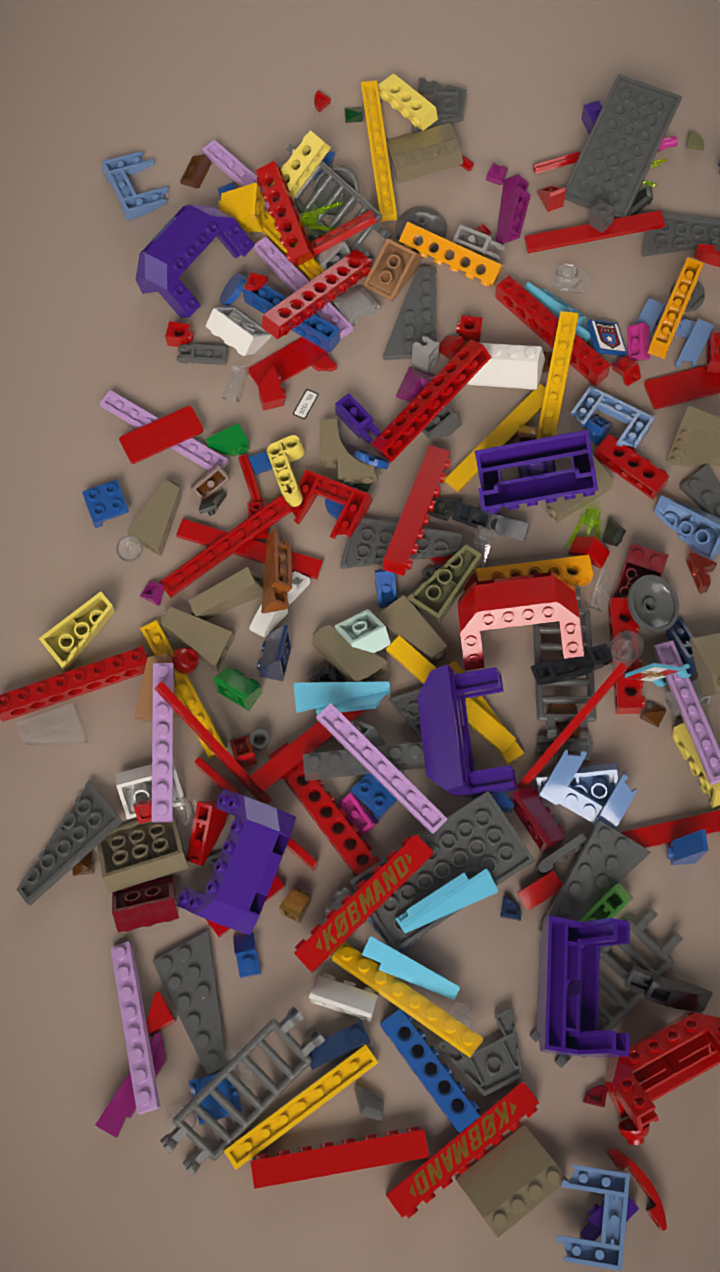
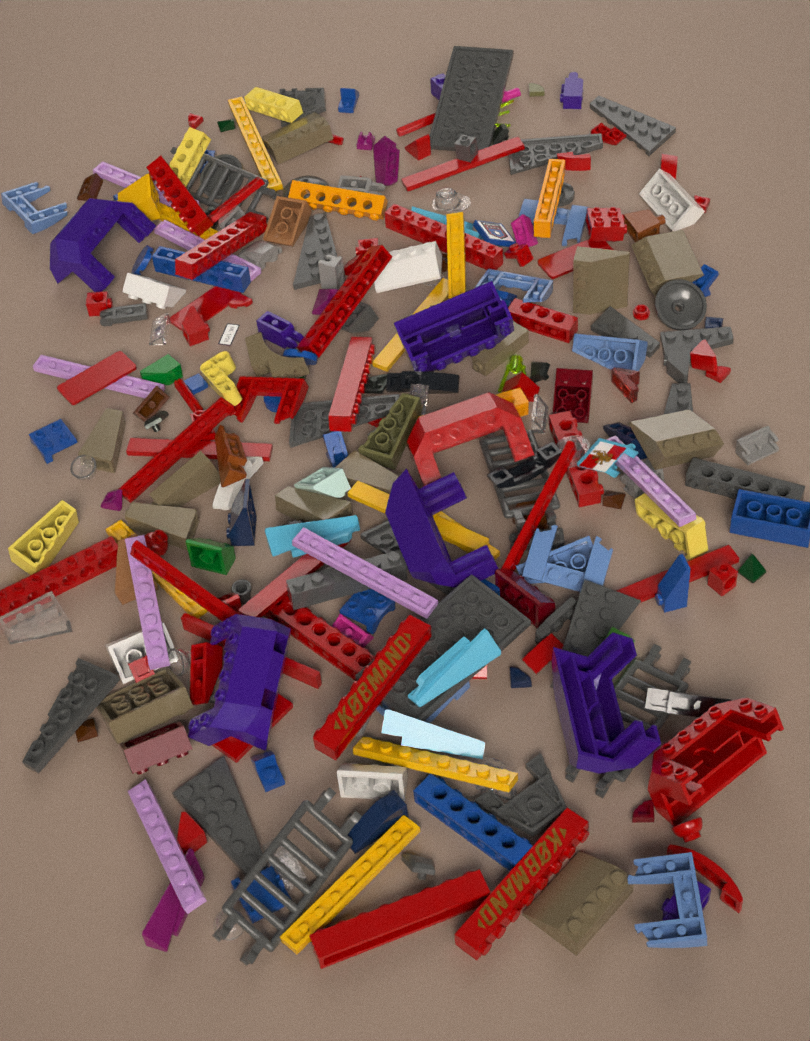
camera: 10 degrees left, 20 degrees down
(256, 281) = (163, 247): red tile -> none
(295, 904) = (306, 715): pearl gold slope -> none
(311, 217) = (204, 197): clear neon green plant -> none
(489, 111) = (348, 100): none -> blue slope
(660, 601) = (589, 409): dark grey dish -> none

